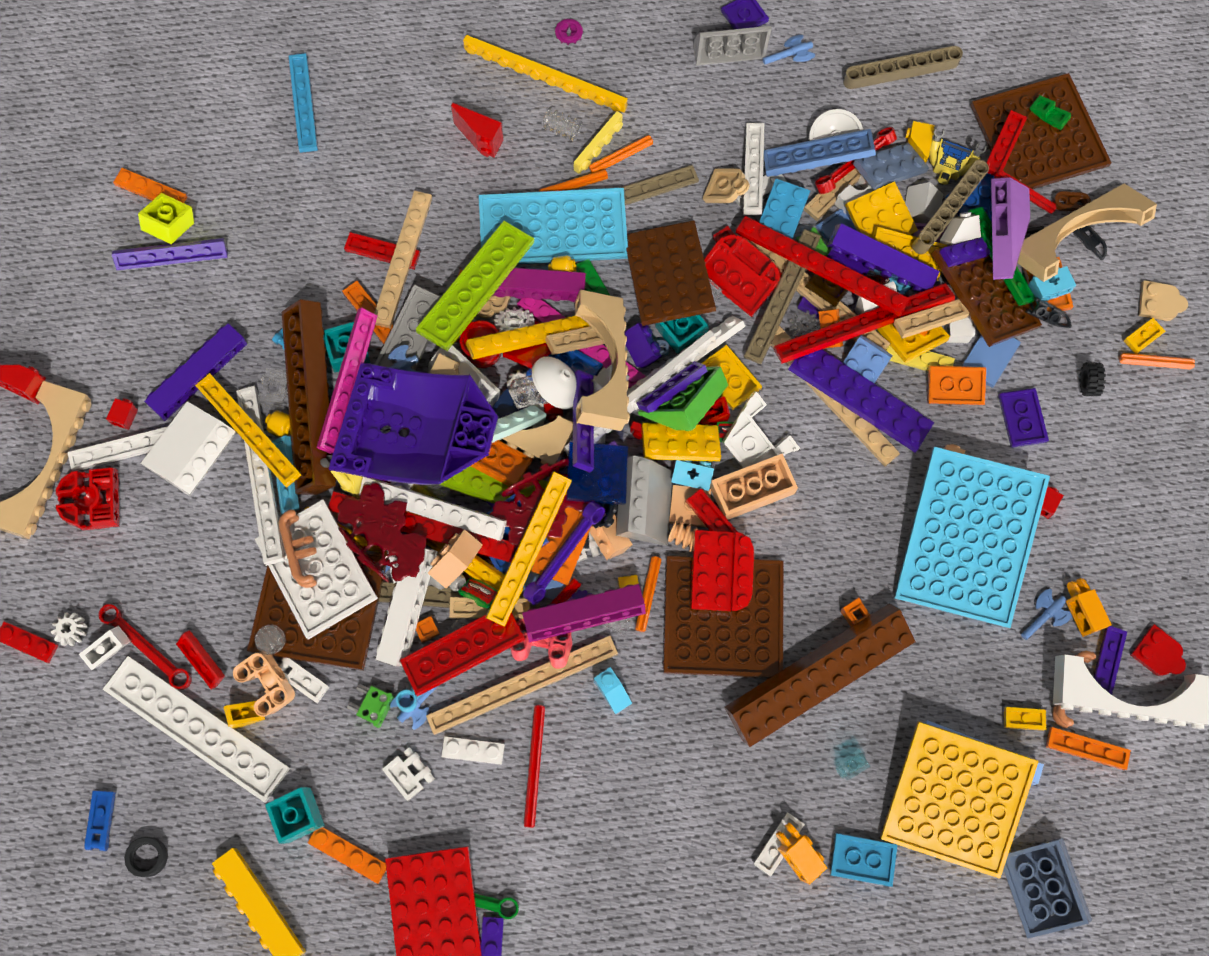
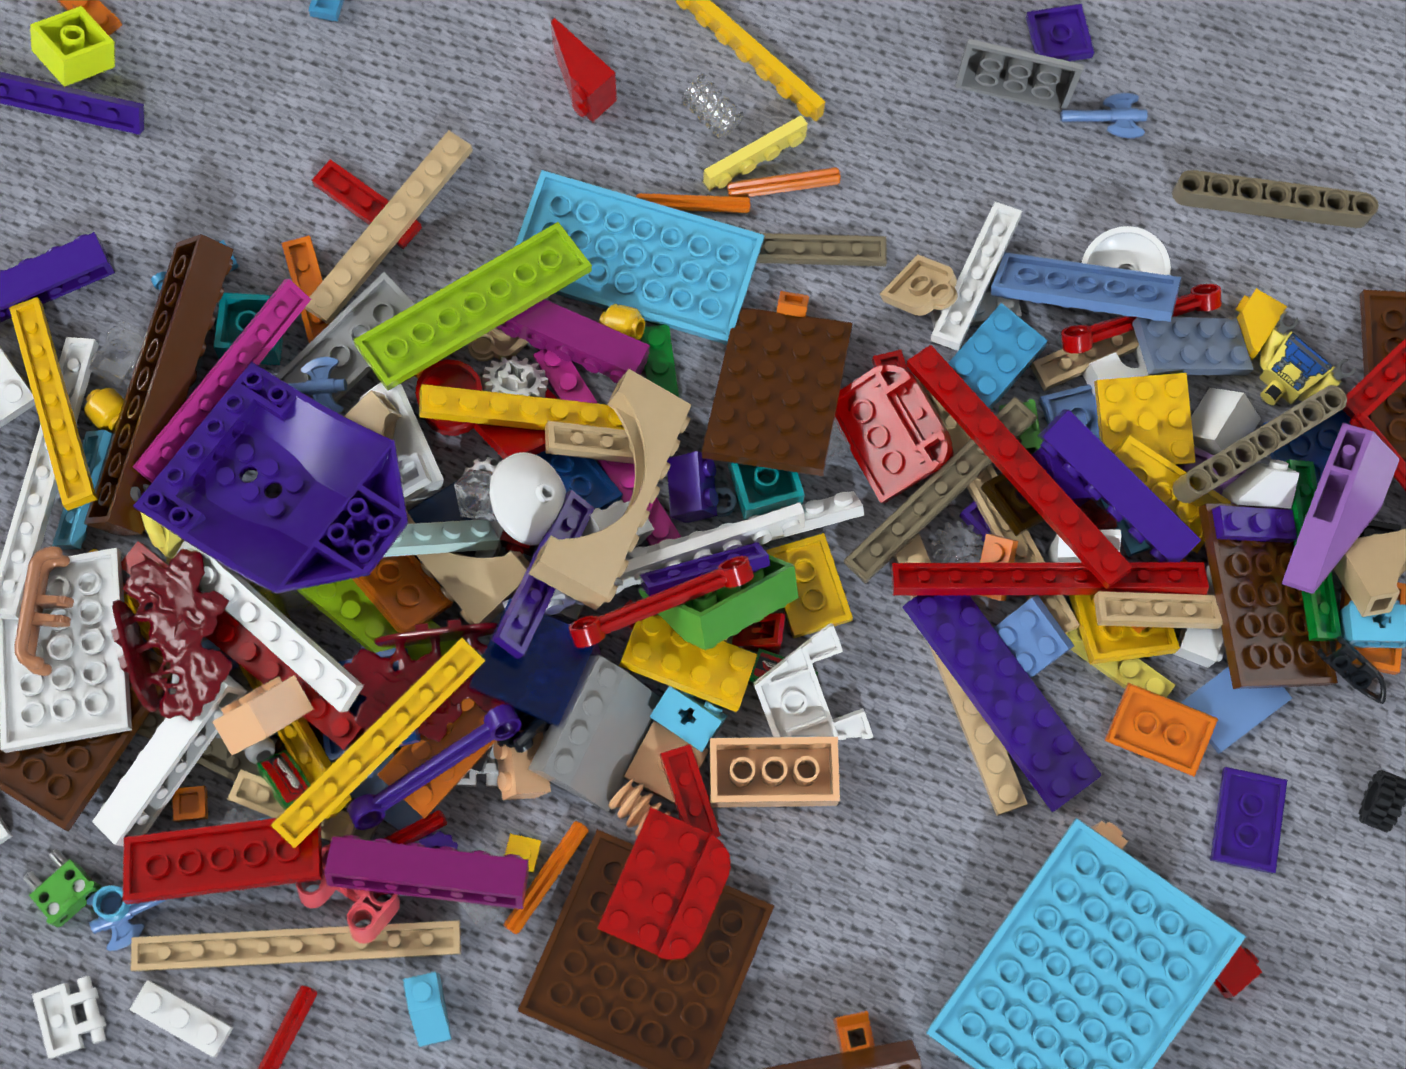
camera: 20 degrees right, 0 degrees up
(624, 441) = (593, 629): none -> red piece
(655, 221) = (792, 304): none -> orange plate

